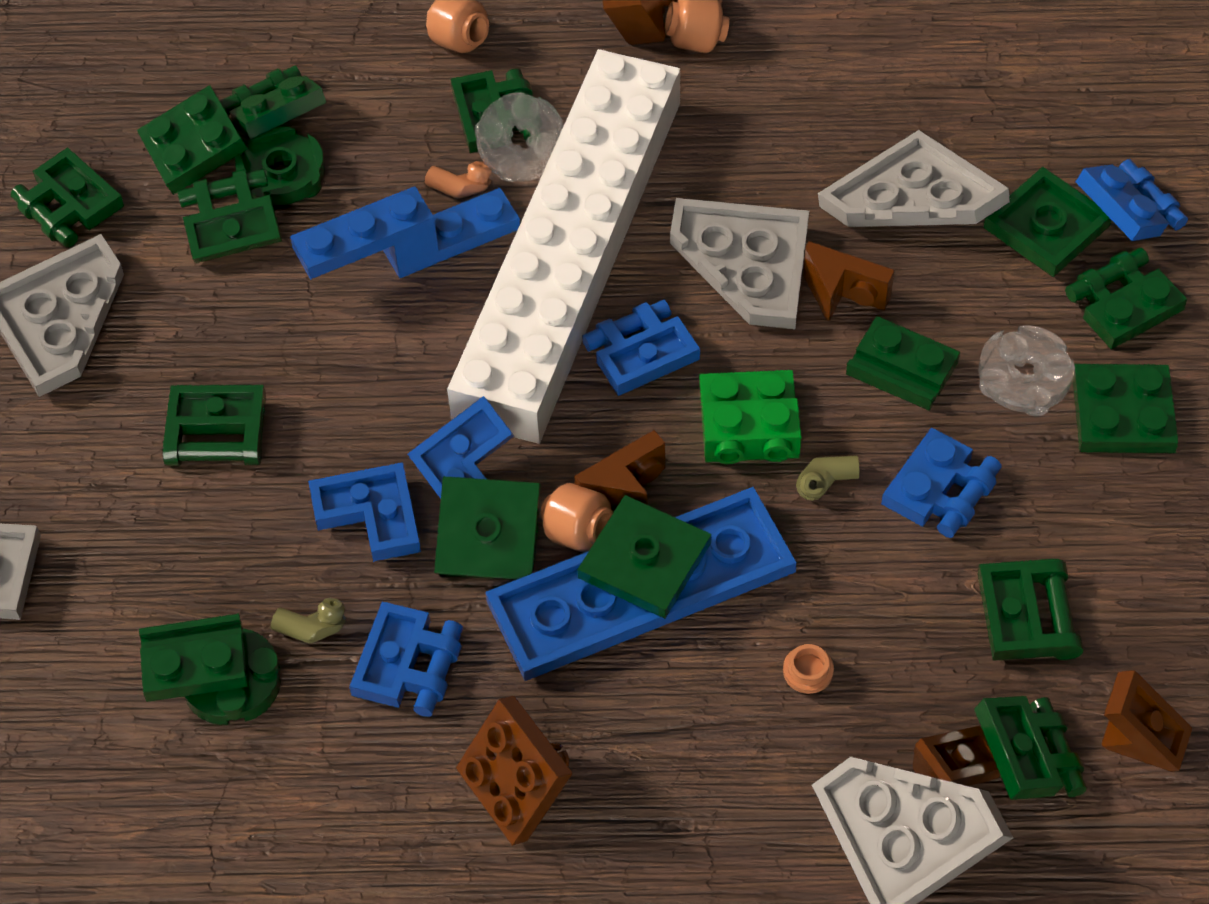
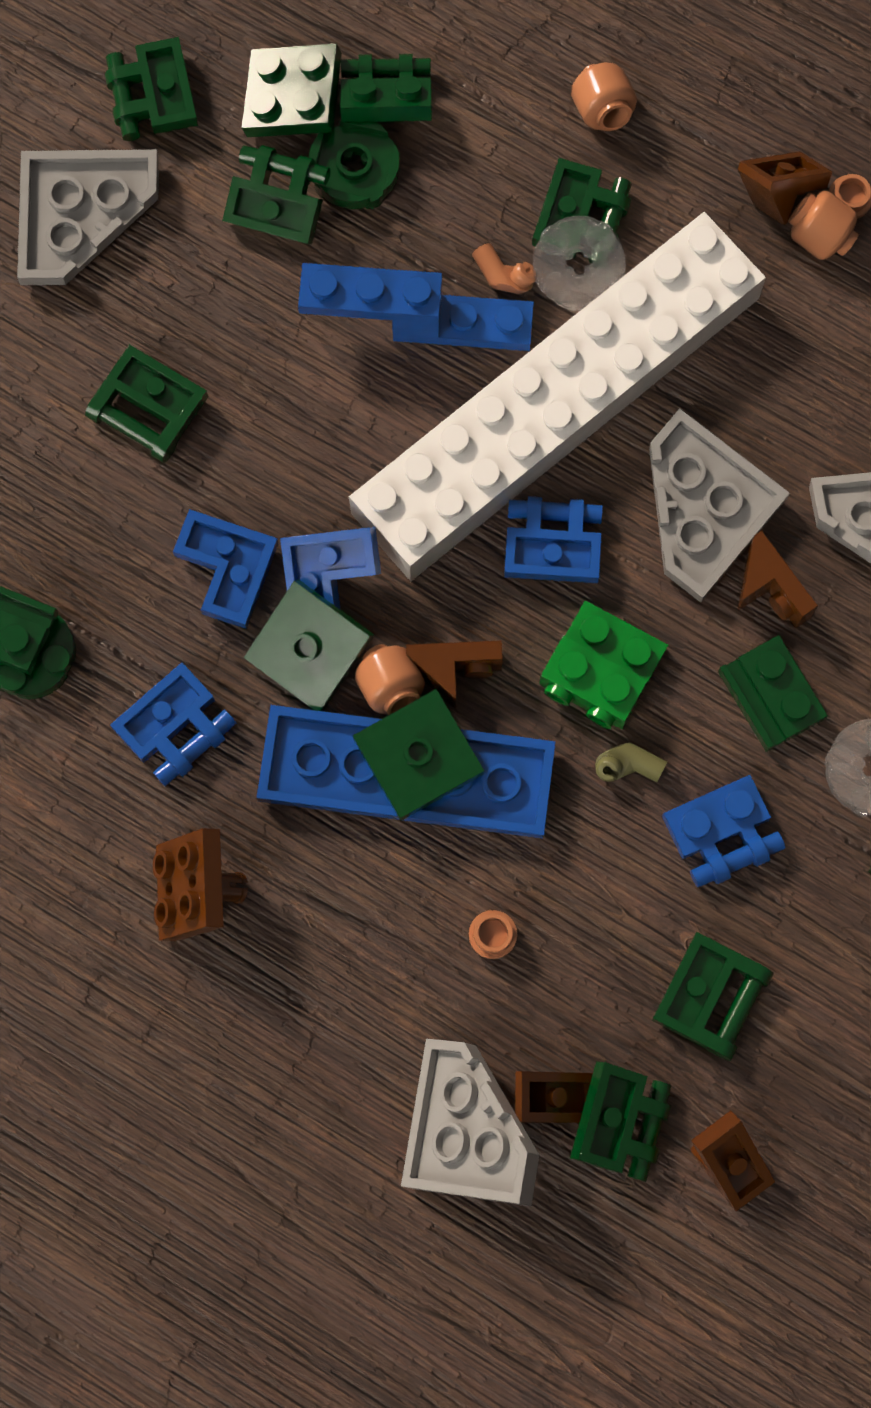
camera: 30 degrees right, 20 degrees up
(314, 627) = (118, 647): olive arm -> none

